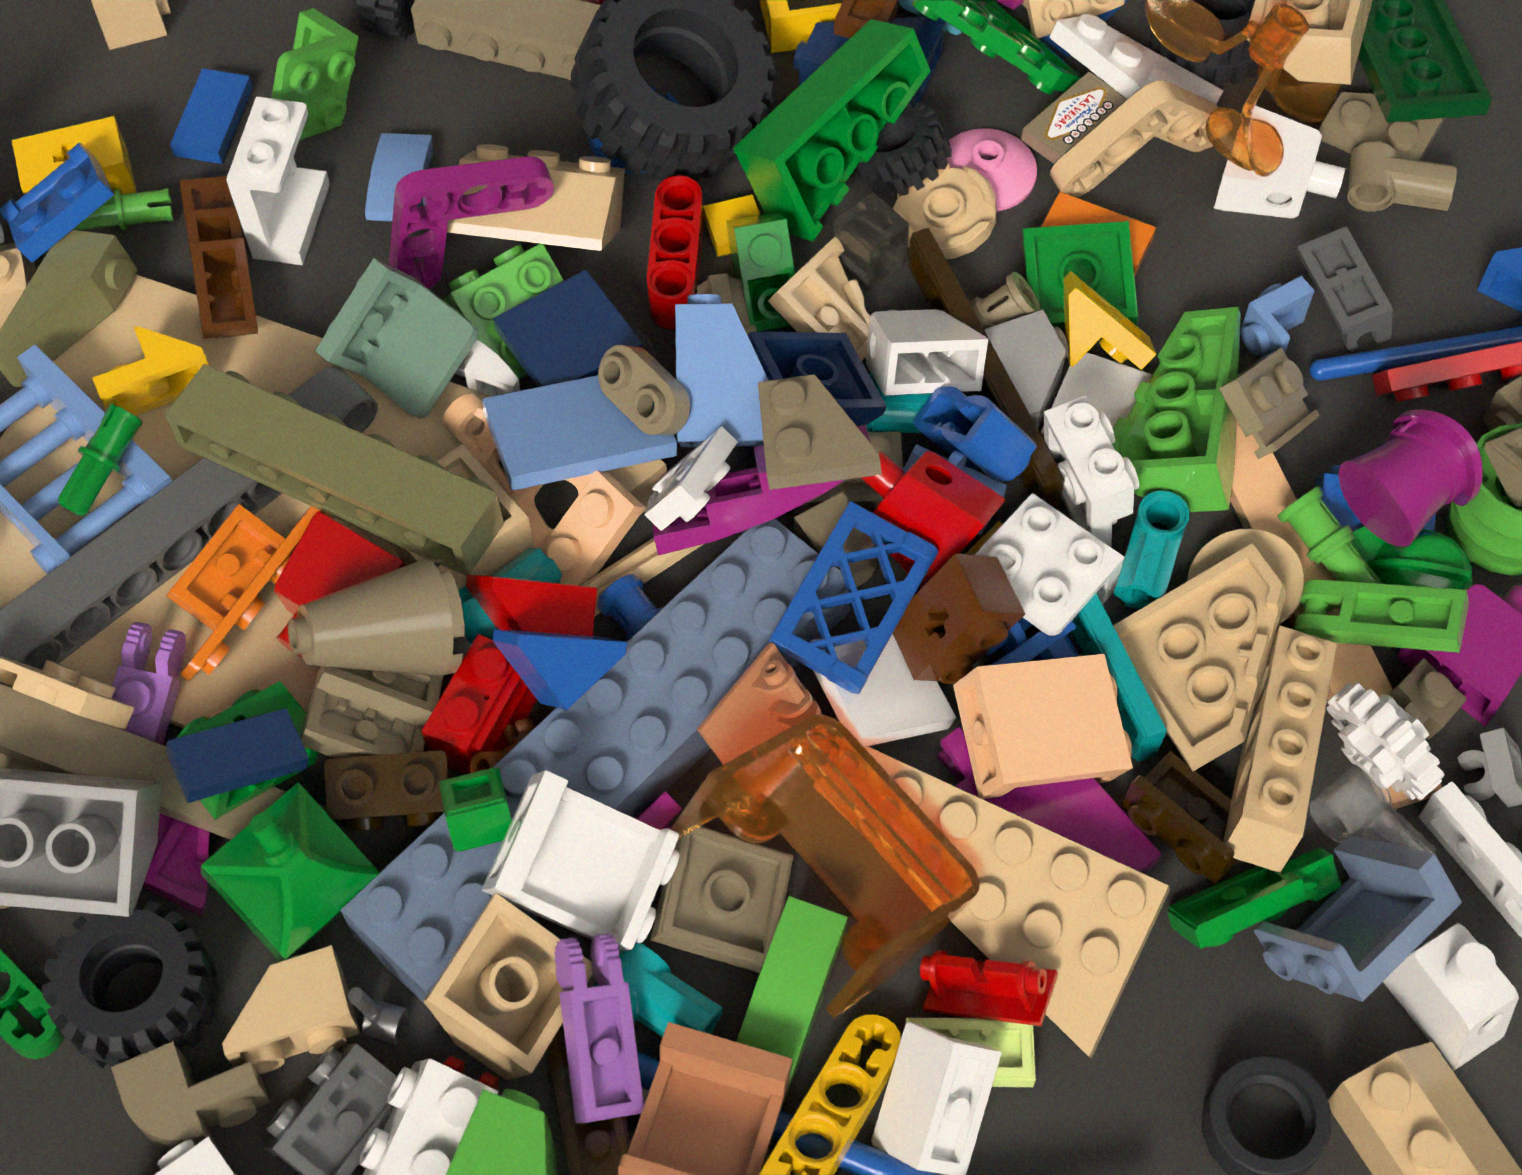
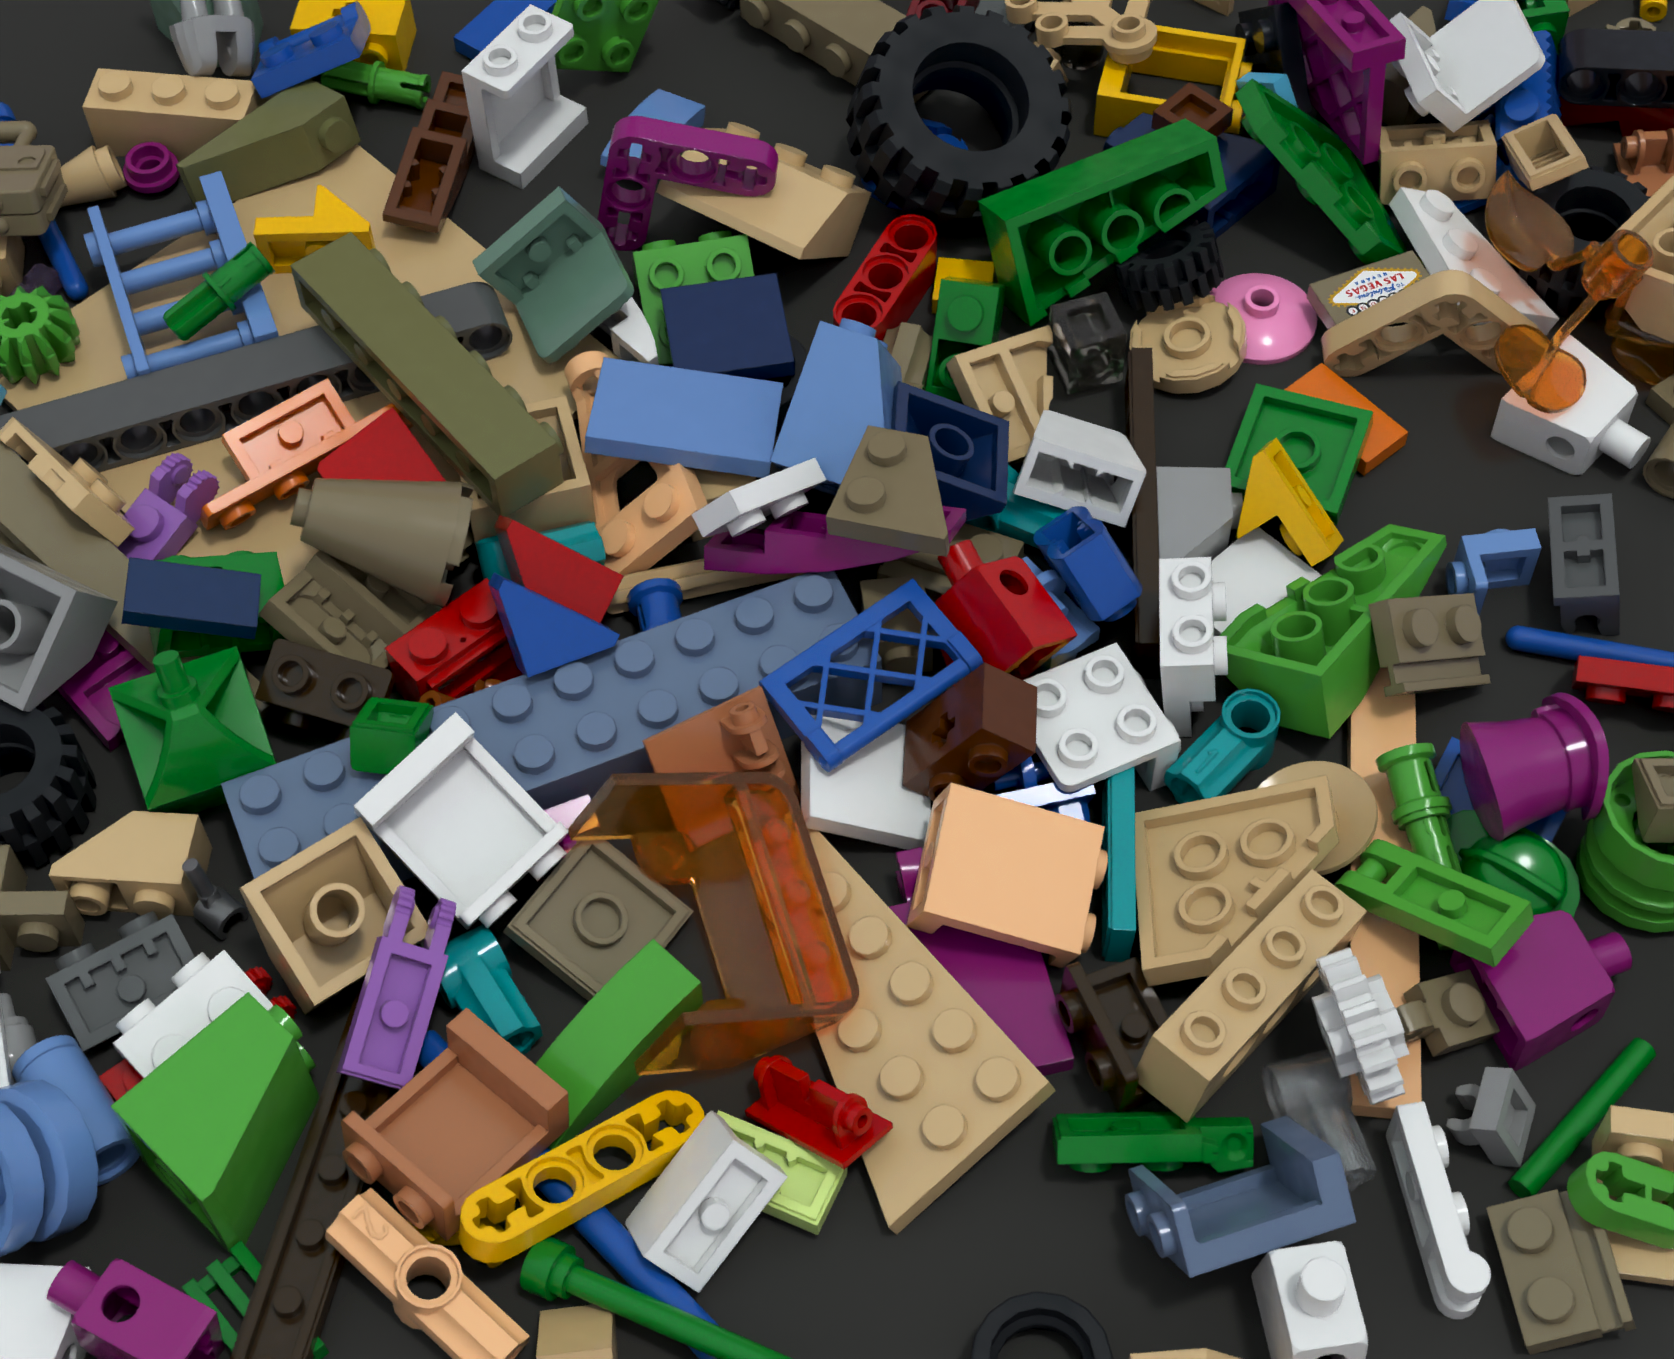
camera: 25 degrees right, 5 degrees down
(635, 381) = (758, 399): dark tan plate -> none
(1006, 303) = (1206, 448): dark tan bush -> none

